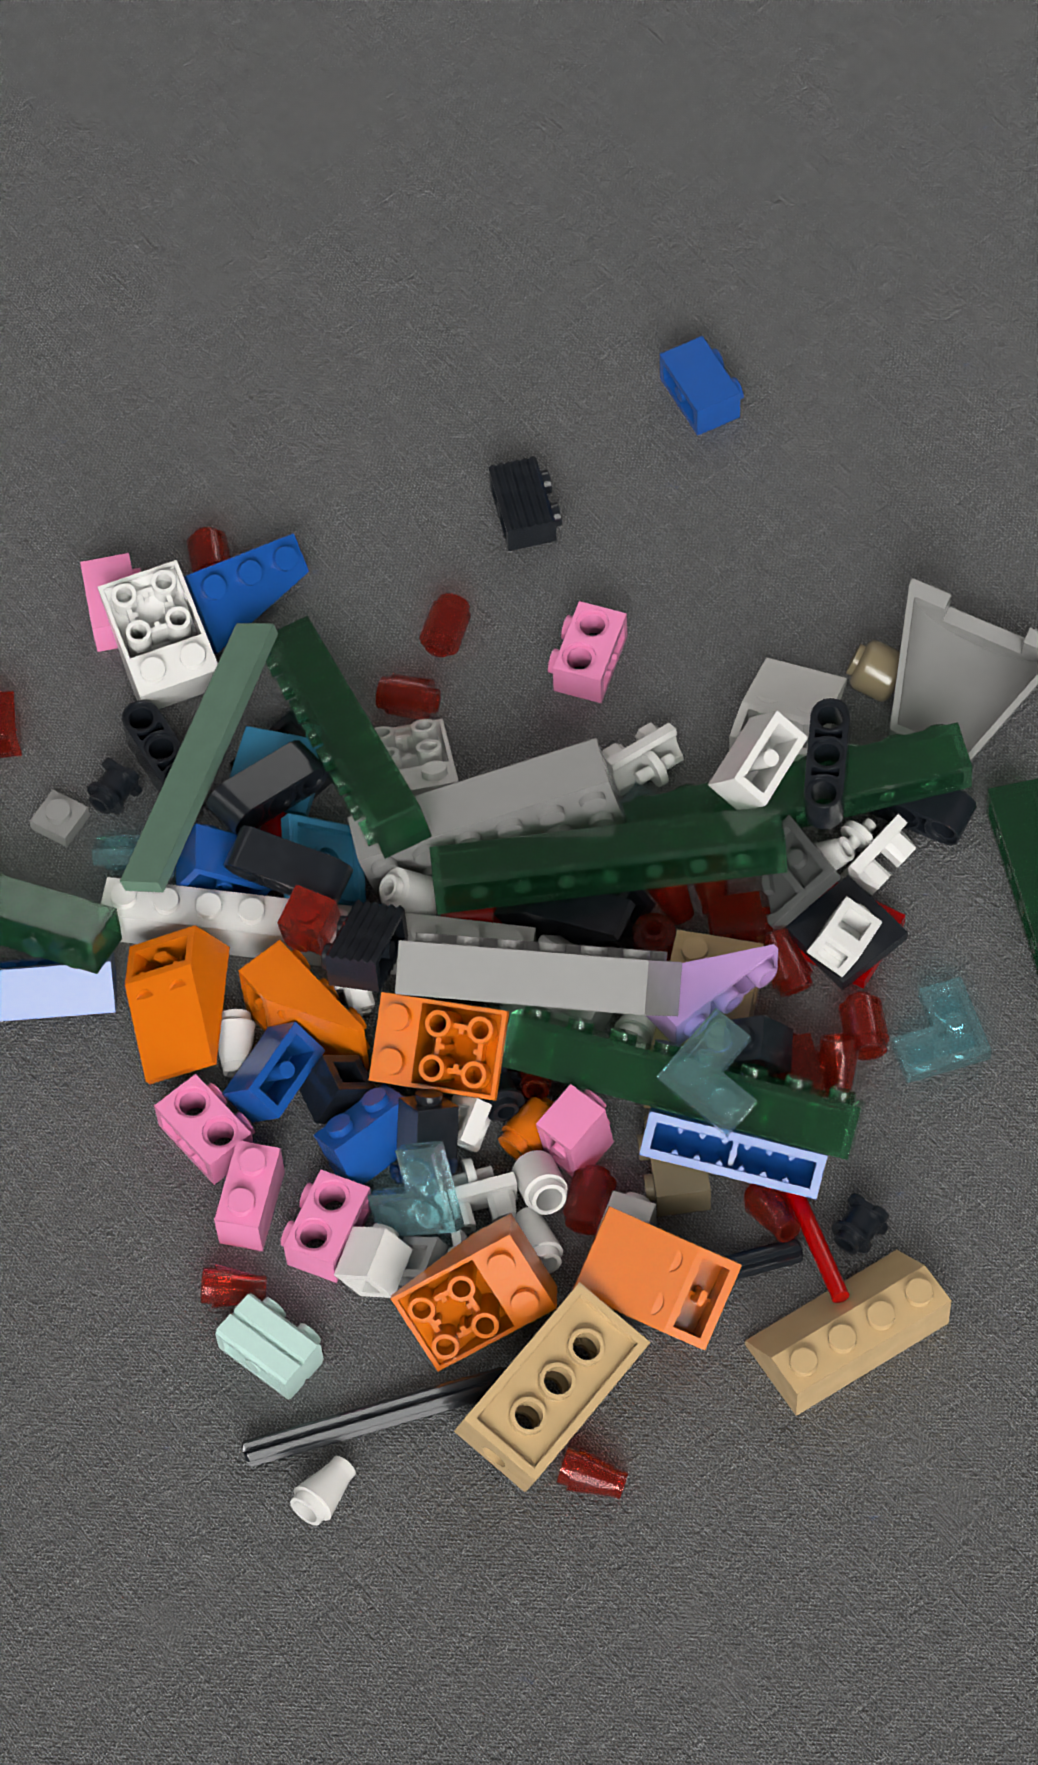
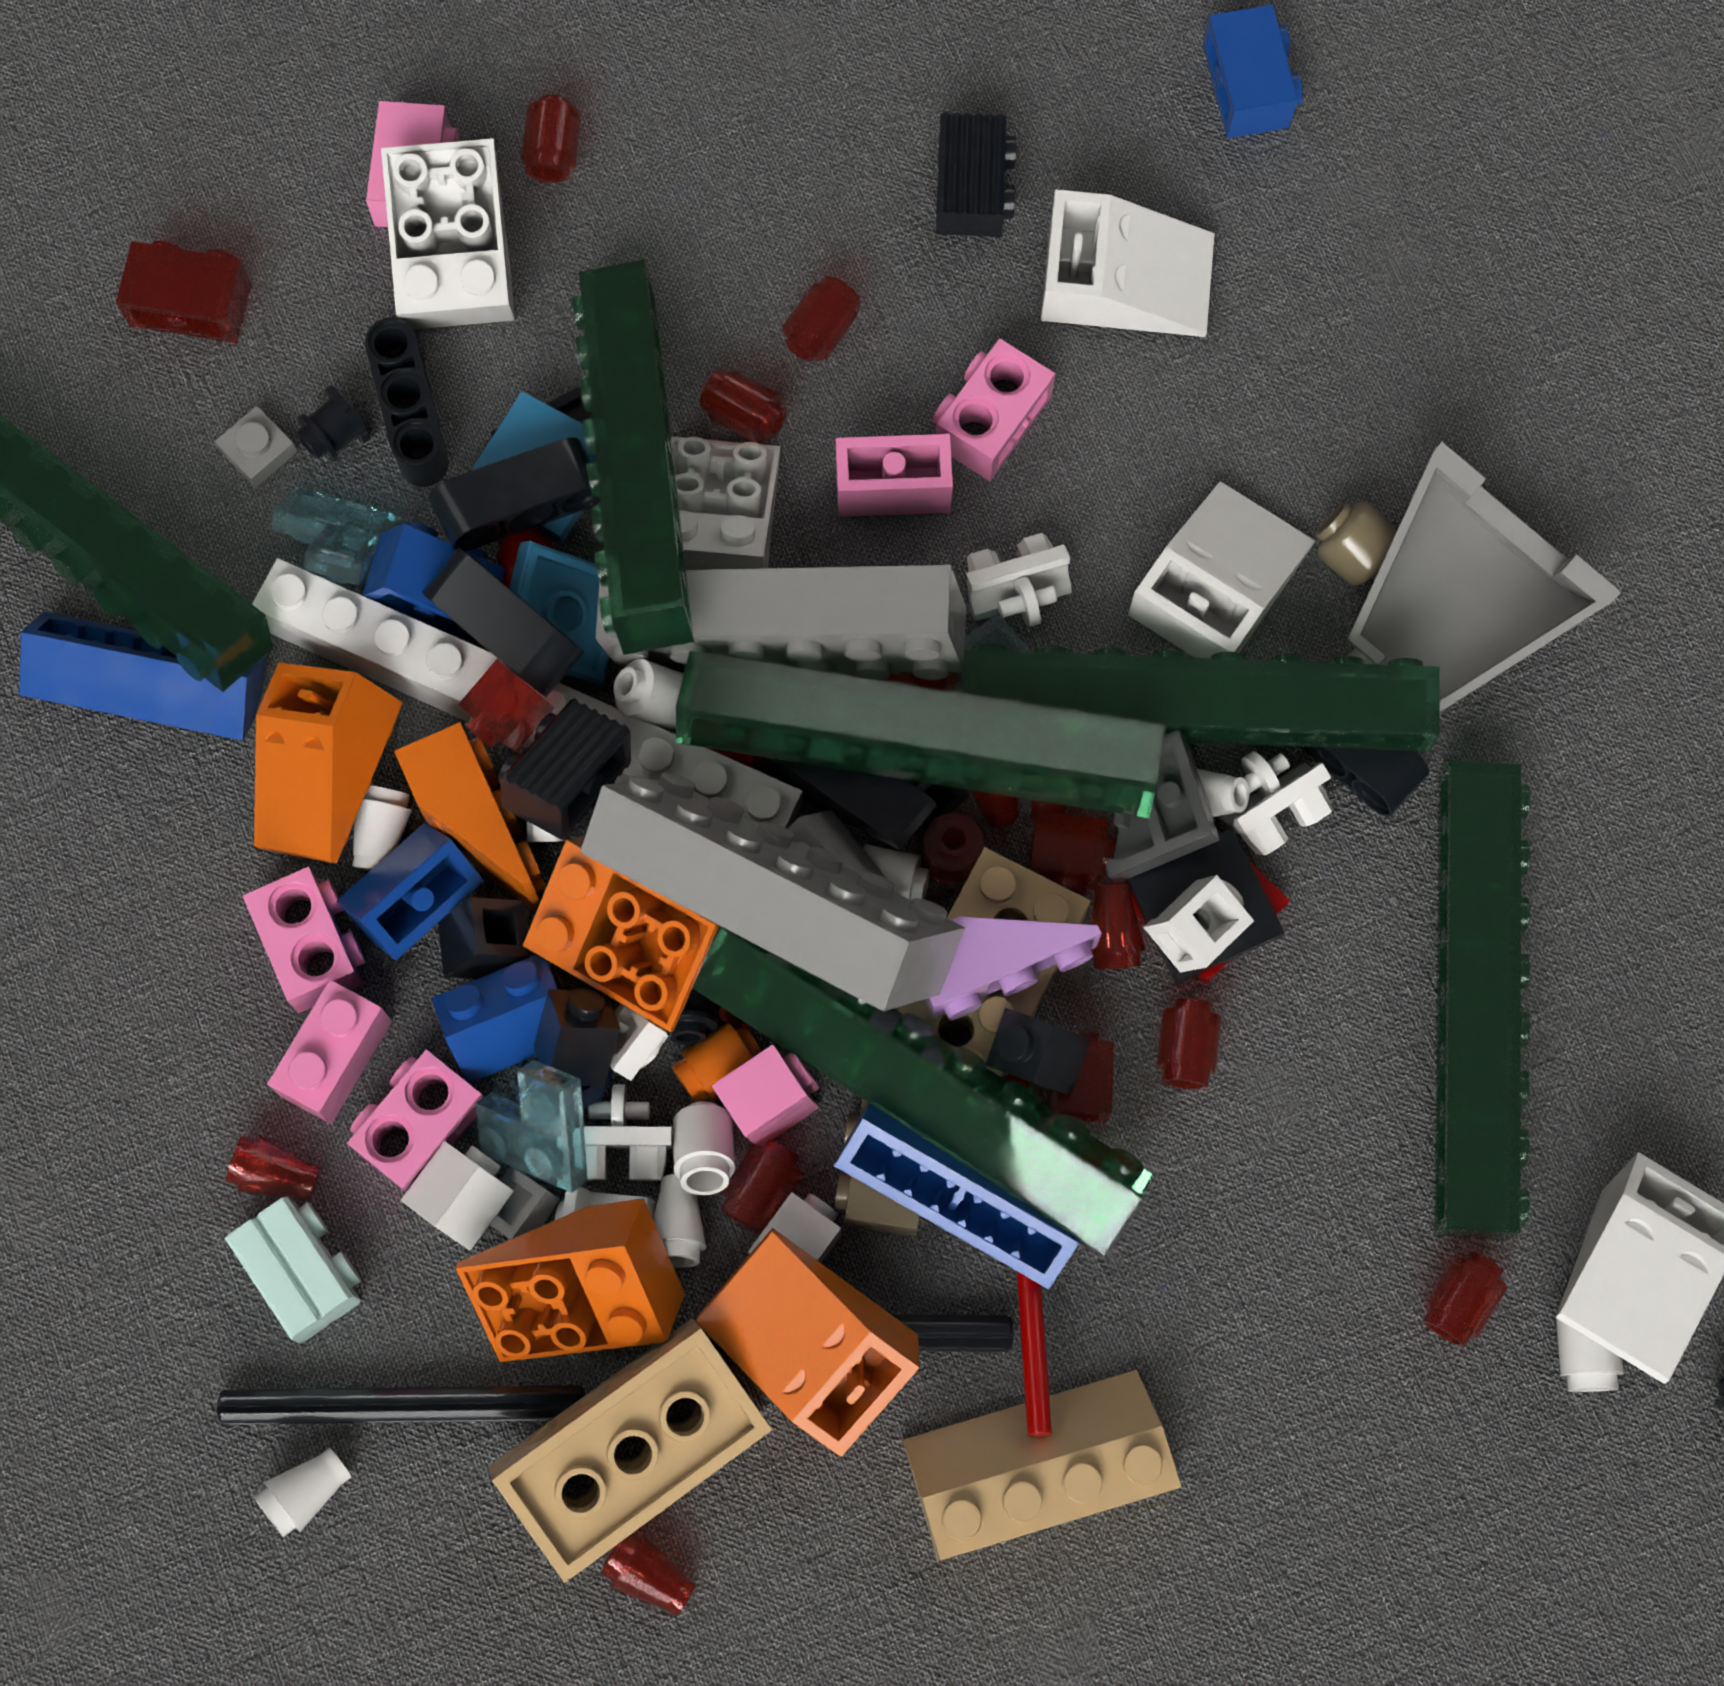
camera: 10 degrees right, 15 degrees up
(199, 758) = (438, 429): sand green tile -> none
(244, 586) = (578, 192): blue wing -> none
(532, 711) = (893, 475): none -> bright pink brick
(652, 534) = (1125, 267): none -> white slope
(699, 1075) = (940, 1089): clear light blue plate -> none
(758, 761) = (1156, 654): white brick -> none
(772, 1211) = (991, 1284): clear red cone -> none
(821, 780) = (1252, 654): black beam -> none
(838, 1059) = (1138, 1090): clear red cone -> none
(859, 1225) = (1096, 1328): black brick -> none
(950, 1041) = (1300, 1096): clear light blue plate -> none

